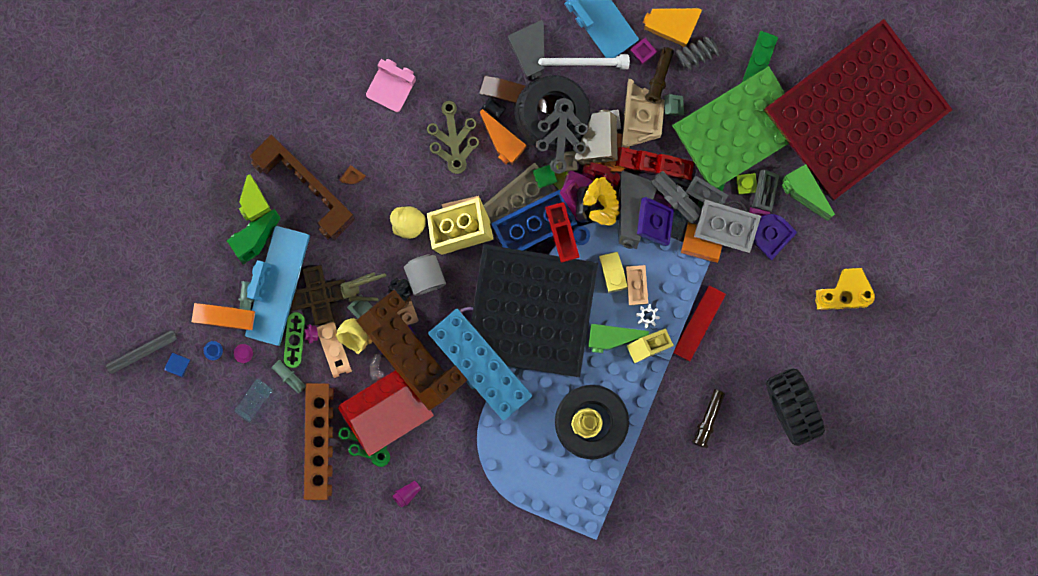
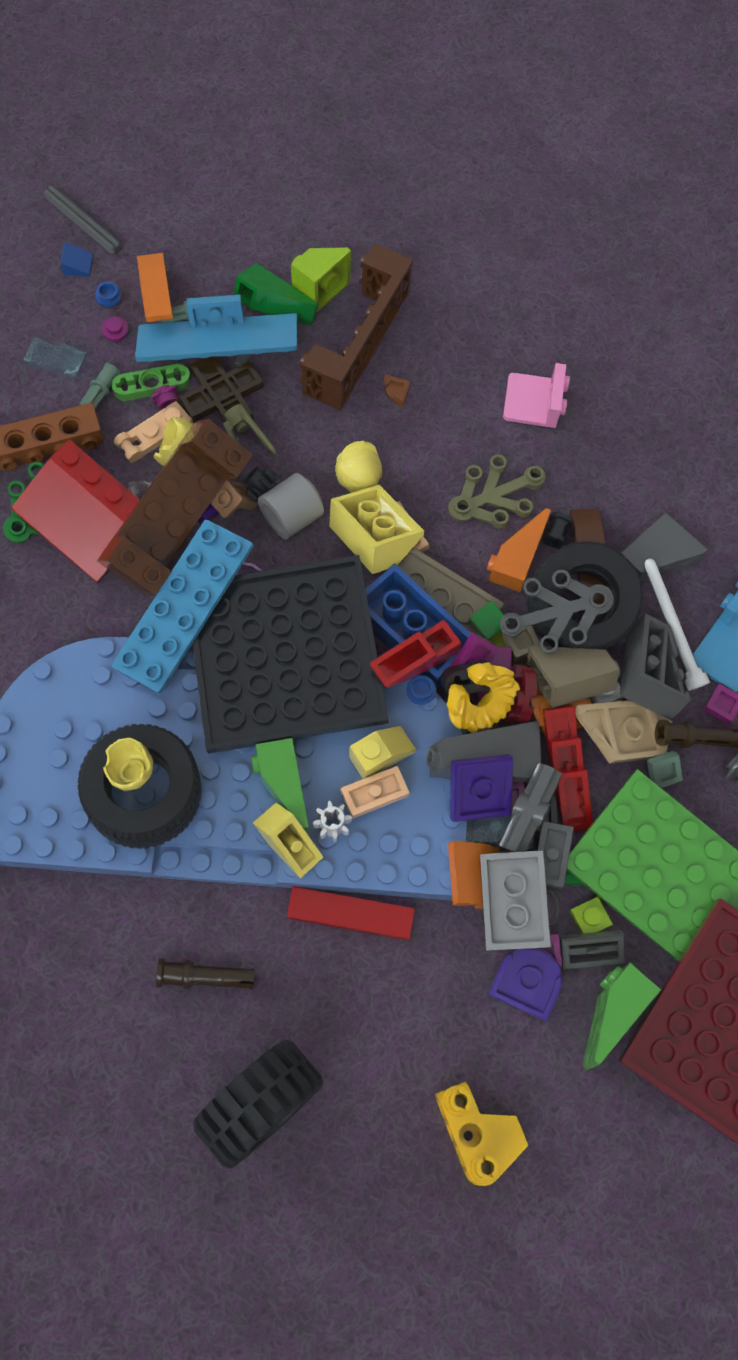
camera: 65 degrees right, 15 degrees down
(611, 89) = (651, 670): none -> dark grey wedge

